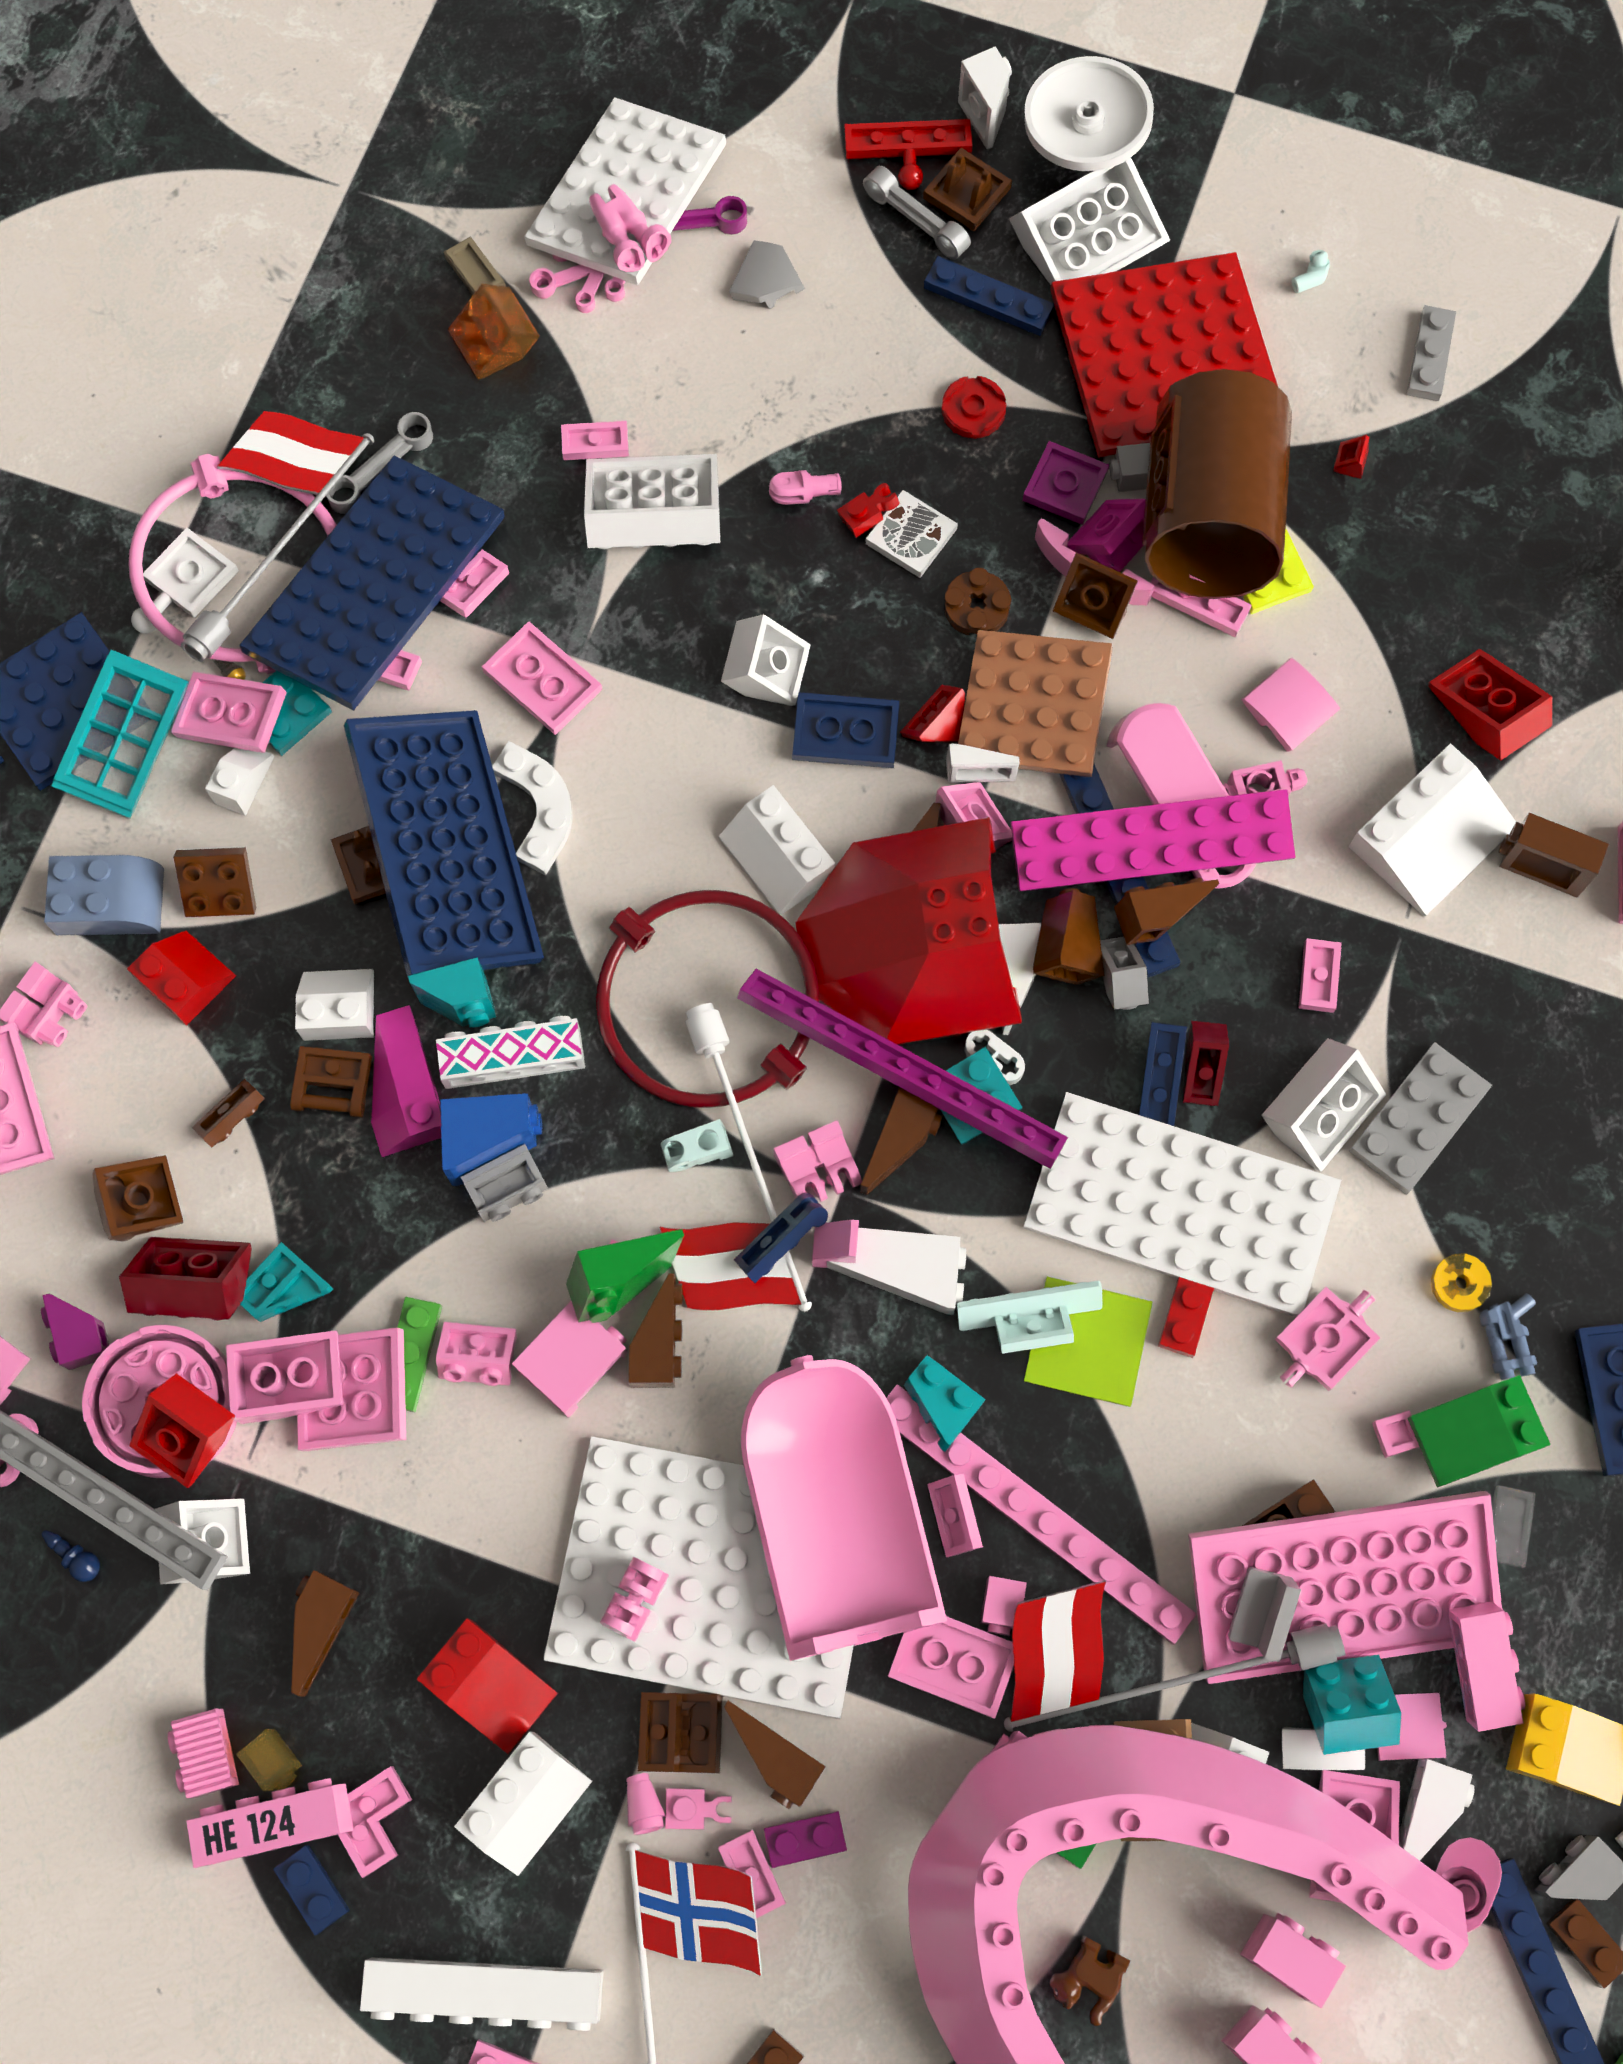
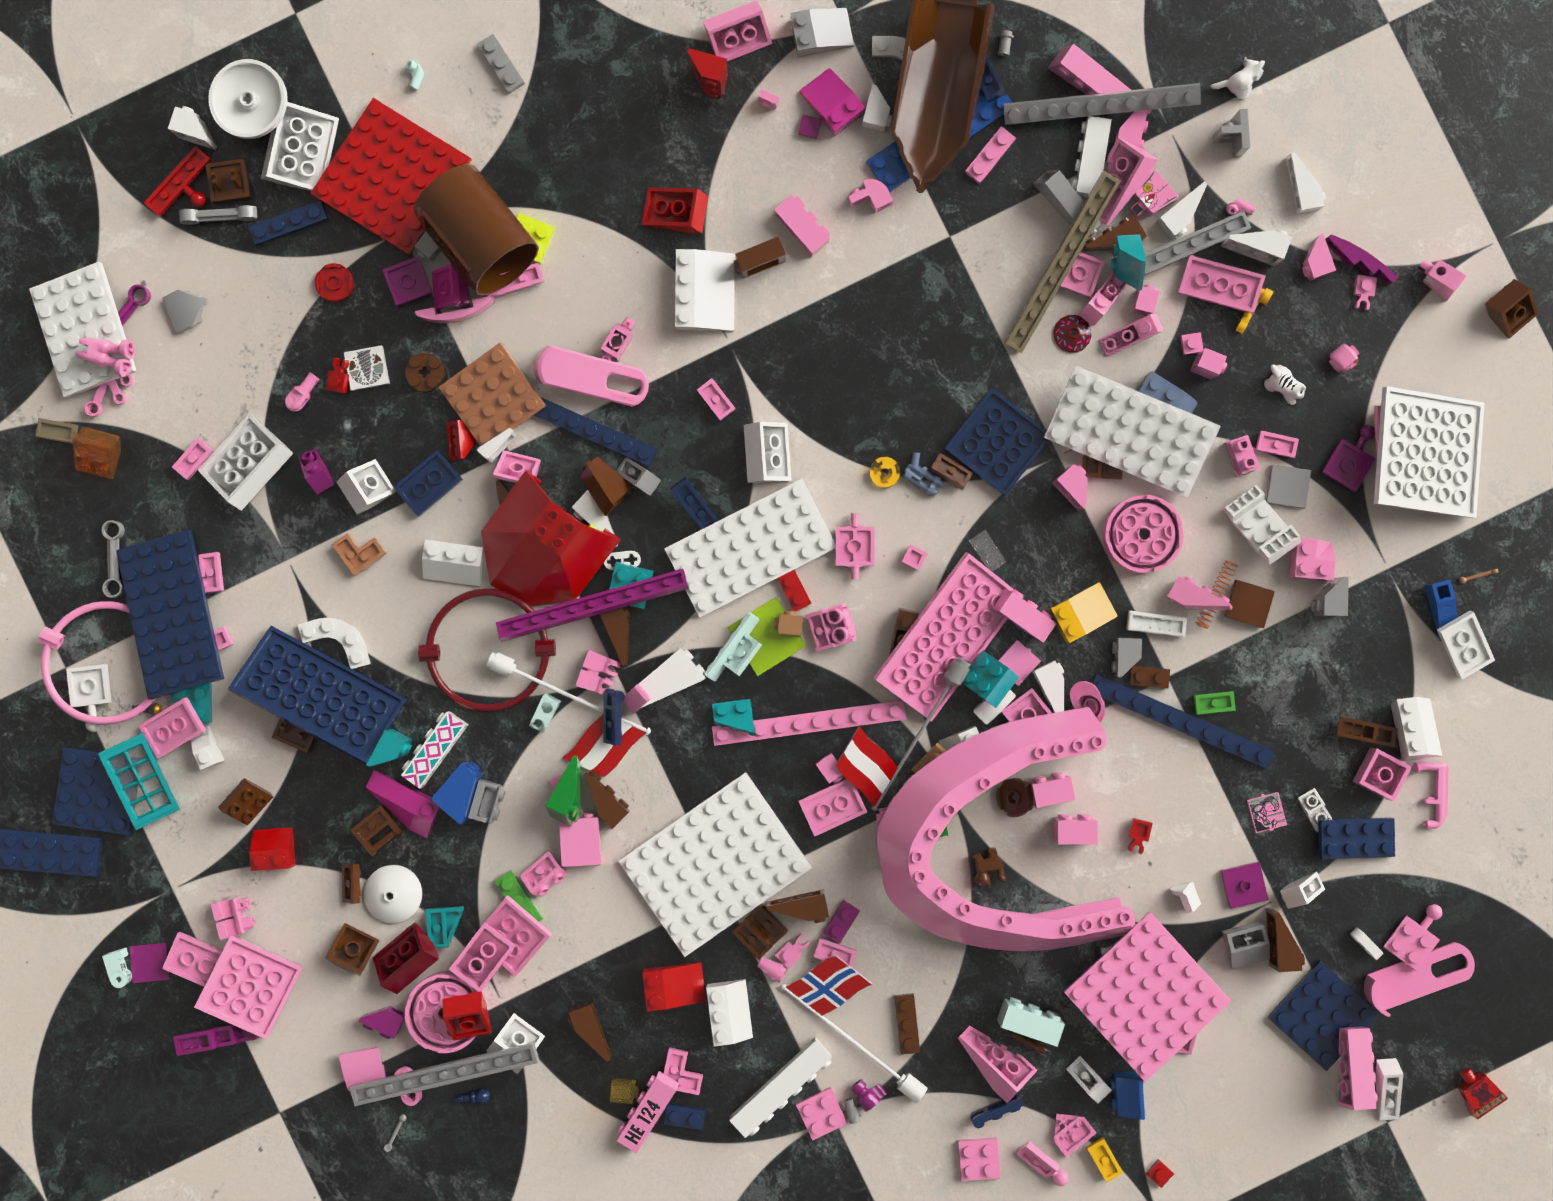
camera: 45 degrees left, 15 degrees up
(104, 895) = (206, 850): sand blue brick -> none
(203, 1753) = (597, 1113): bright pink brick -> none
(278, 1198) = (405, 891): none -> white dish
(292, 457) = (78, 594): flag -> none
(335, 1005) = (345, 799): white slope -> none
(542, 678) = (282, 584): bright pink plate -> none
(625, 1613) = (698, 912): bright pink legs -> none
(666, 735) = (358, 558): none -> nougat plate
(724, 588) = (315, 471): none -> magenta slope
(836, 1509) = (736, 798): bright pink panel -> none
(954, 1515) = (781, 753): bright pink plate -> none
(1095, 596) = (471, 325): reddish brown slope -> none
(1137, 1351) = (789, 623): none -> medium nougat brick
(1152, 840) = (597, 410): dark pink plate -> none
(1152, 912) = (628, 441): reddish brown slope -> none
(1192, 1413) = (832, 627): none -> bright pink slope
(1205, 1062) = (705, 481): dark red slope -> none
(1243, 1930) = (1023, 793): none -> reddish brown plate
(1265, 1612) = (927, 678): light grey panel -> none
(1290, 704) = (595, 291): bright pink slope -> none
(1352, 456) = (514, 148): red slope -> none
(1420, 1118) = (809, 419): light grey plate -> none
(1478, 1431) = (943, 527): green slope -> none
(1558, 1369) = (951, 471): none -> reddish brown plate

